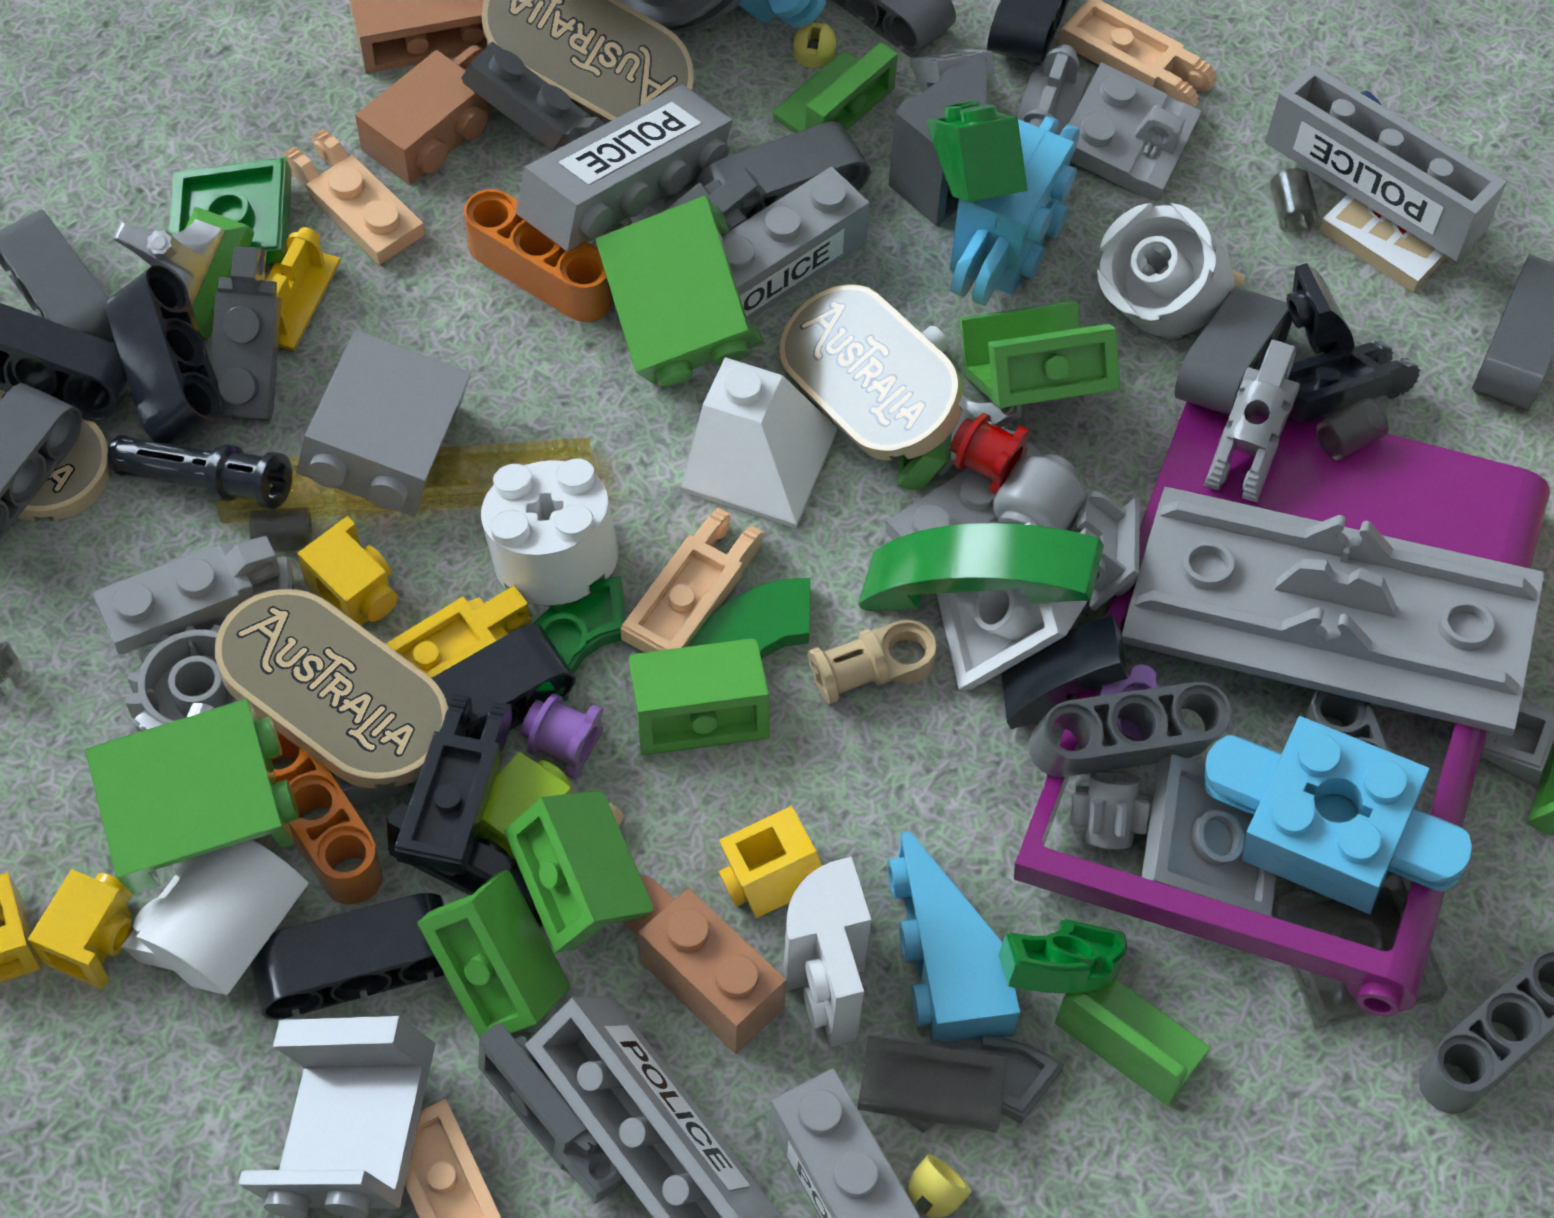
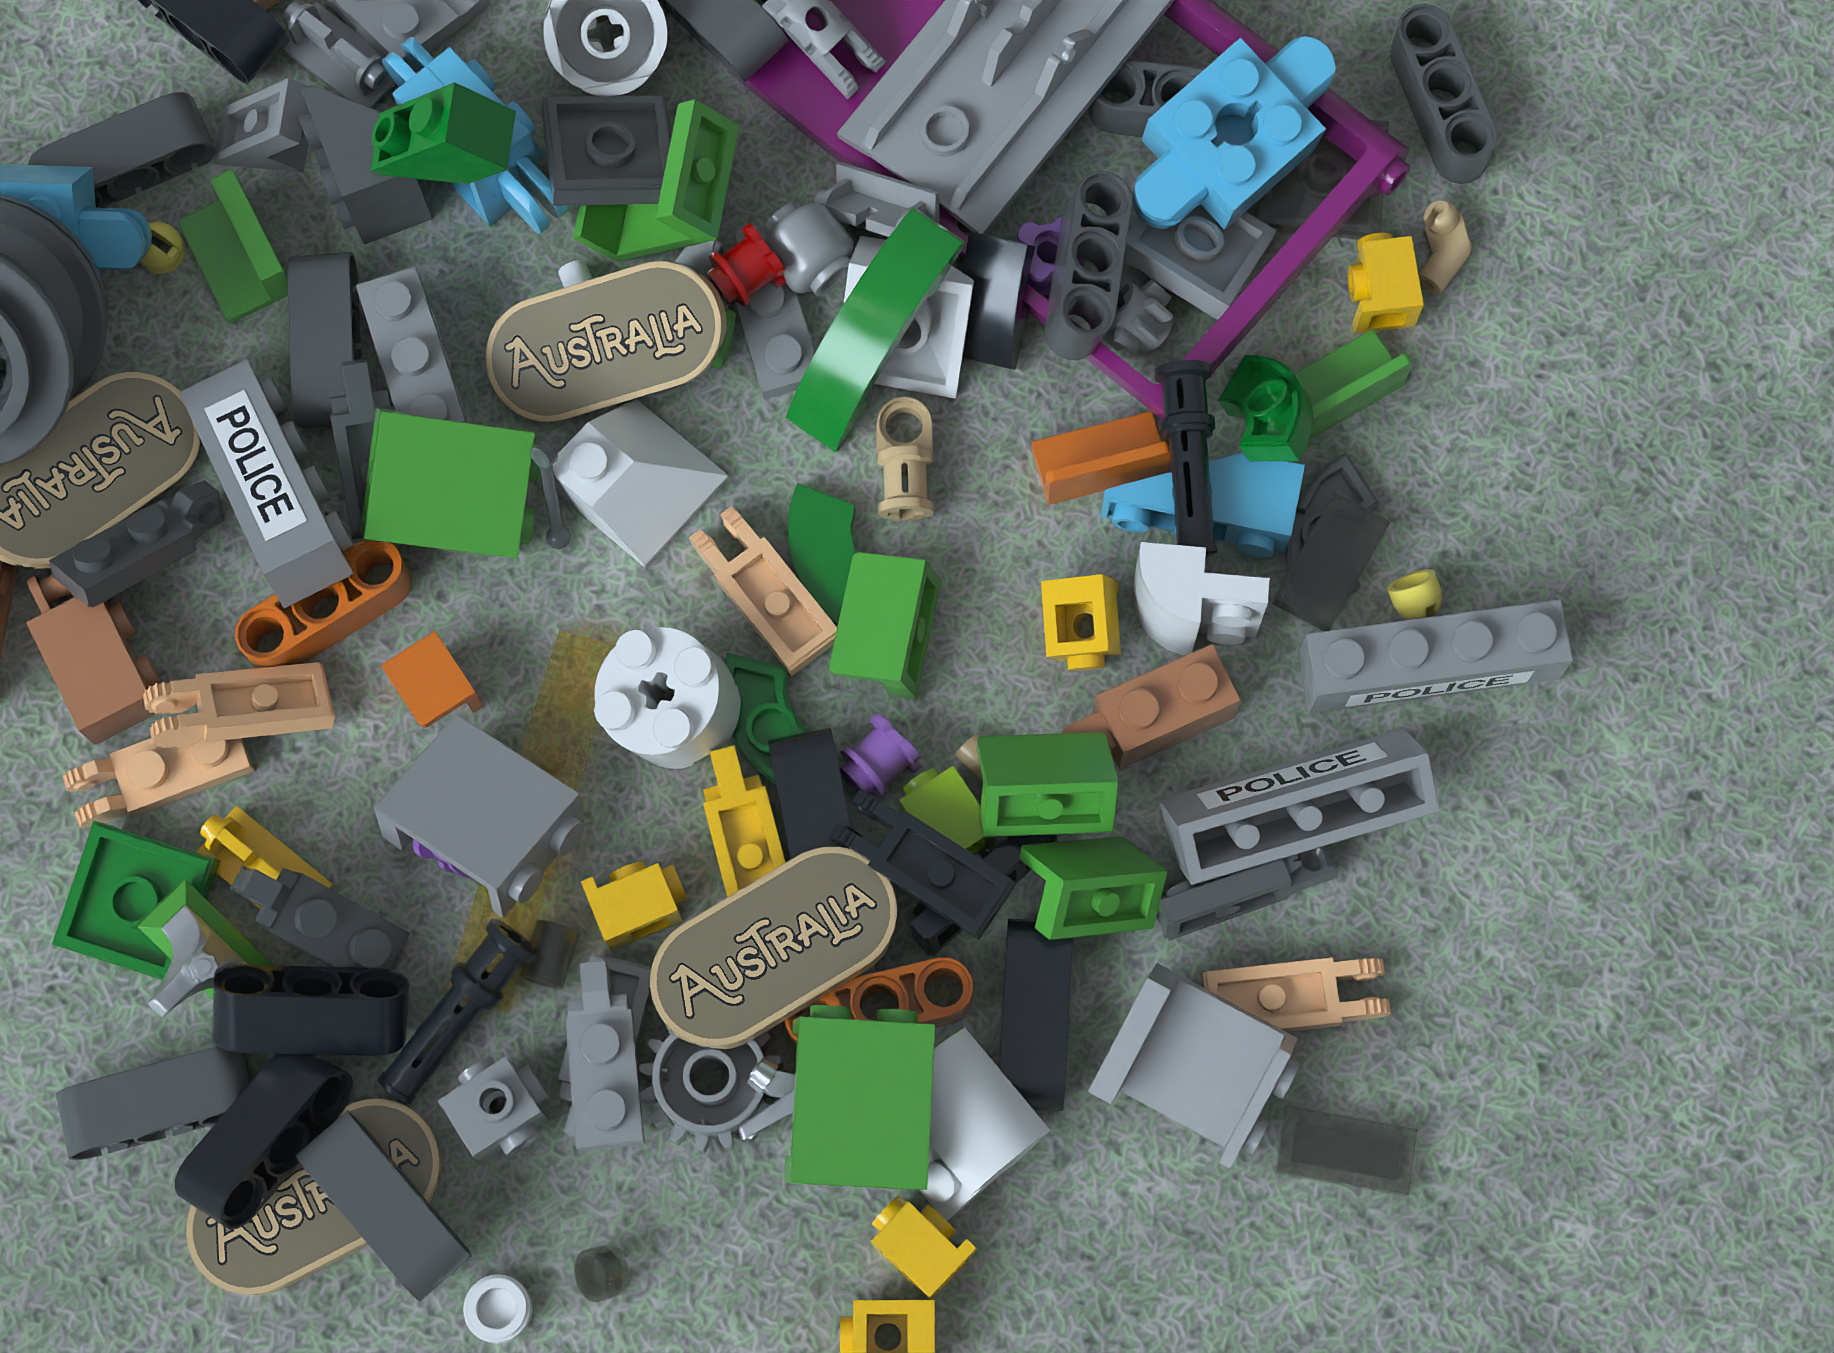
camera: 65 degrees left, 15 degrees up
(117, 526) = (472, 1103): none -> light grey brick
(424, 223) = (241, 704): none -> light nougat hinge
(502, 351) = (430, 681): none -> orange panel
(680, 410) = (545, 456): none -> dark grey hinge
(952, 831) = (1100, 457): none -> orange panel
(1000, 877) = (1187, 429): none -> black pin
(1045, 292) = (606, 148): none -> dark grey tile
(1263, 1040) = (1385, 283): none -> yellow brick
(1345, 1097) = (1448, 244): none -> tan arm

